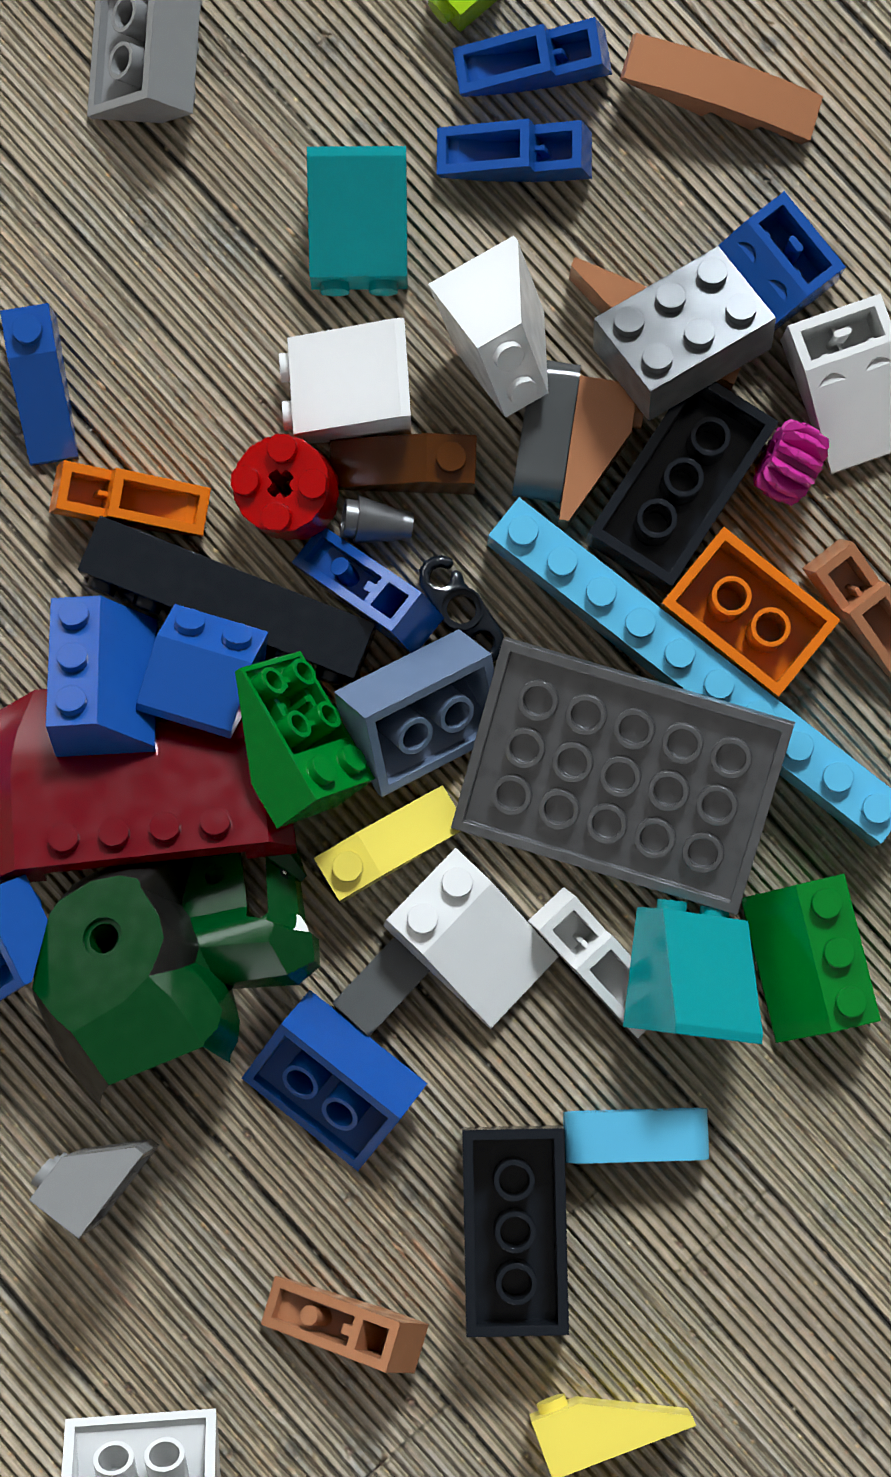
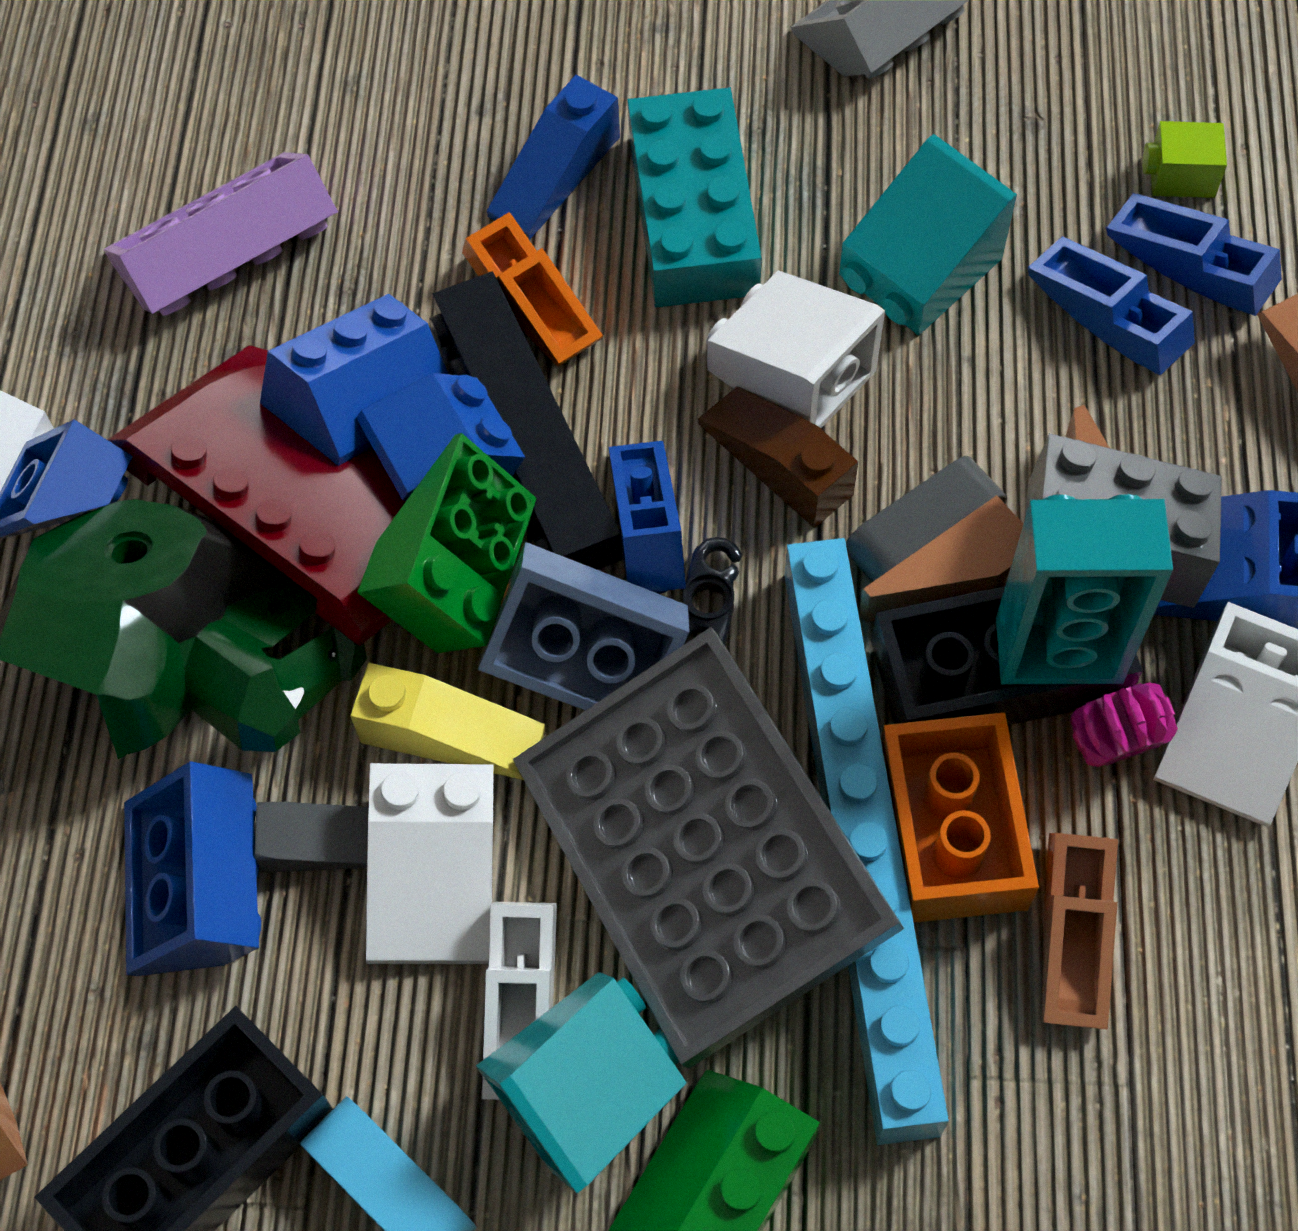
camera: 50 degrees right, 20 degrees down
(166, 326) = (693, 197): none -> teal brick
(259, 481) = (659, 377): red brick -> none
(374, 522) = (704, 467): flat silver cone -> none
(497, 324) = (967, 393): white slope -> none
(728, 427) = (1082, 589): none -> teal brick

